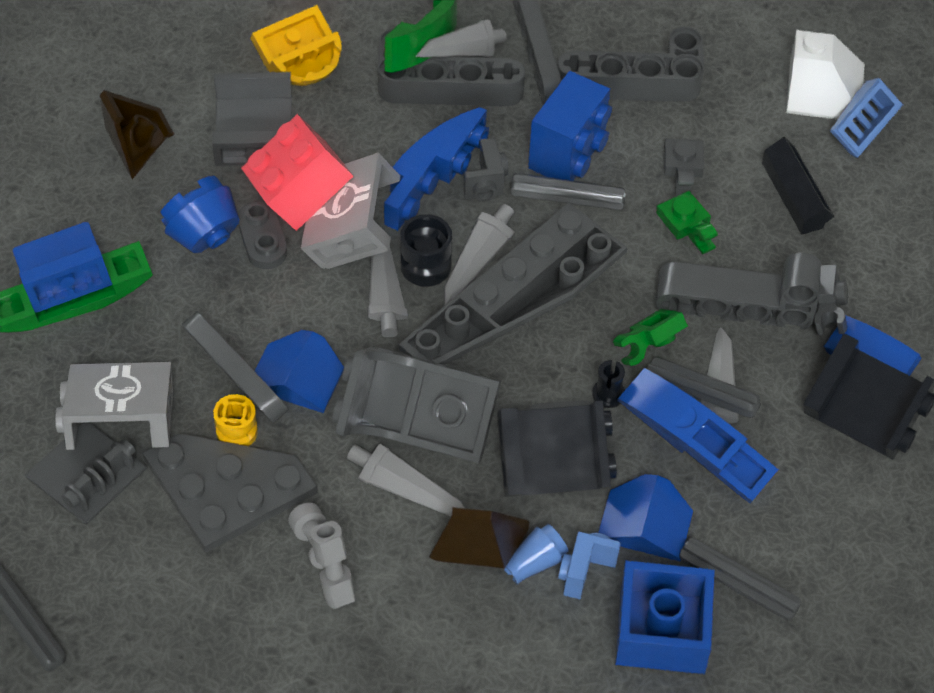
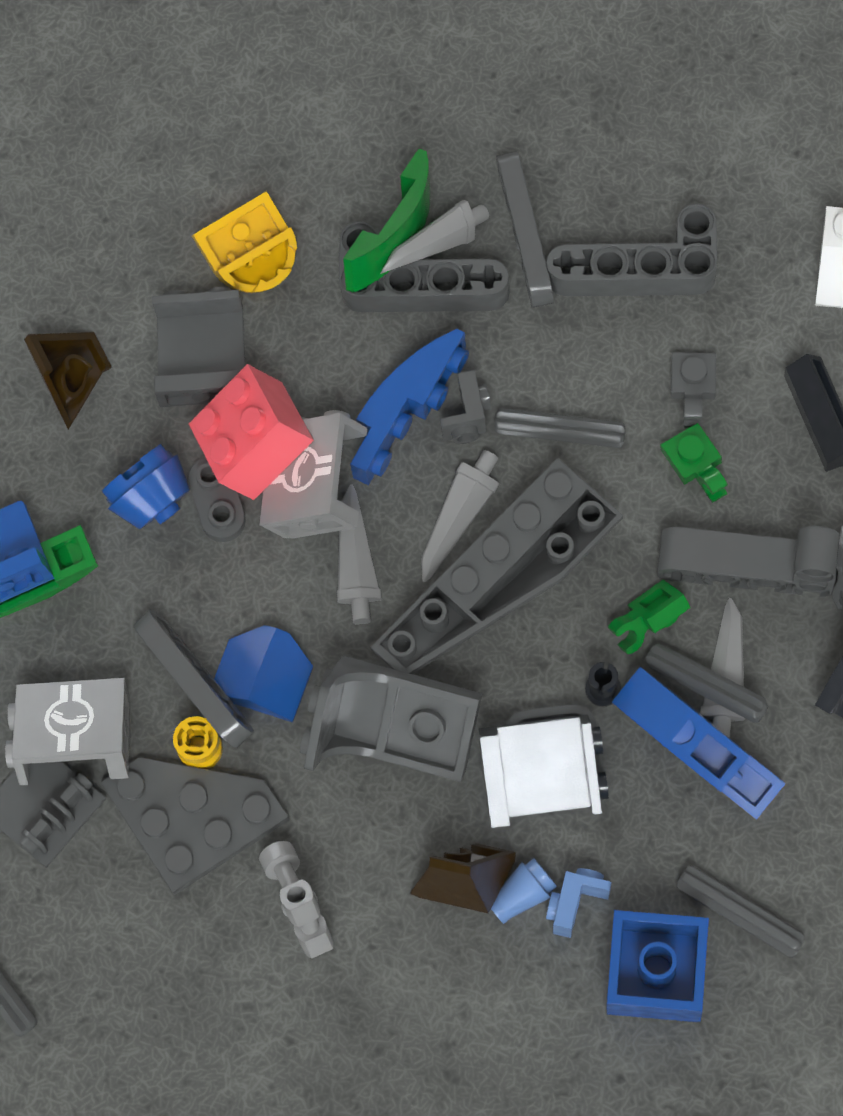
camera: 10 degrees right, 15 degrees up
(396, 476) = (372, 798): light grey bar -> none
(426, 250) = (398, 520): black wheel -> none
(570, 128) = (560, 355): blue brick -> none
(647, 517) = (642, 840): blue slope -> none

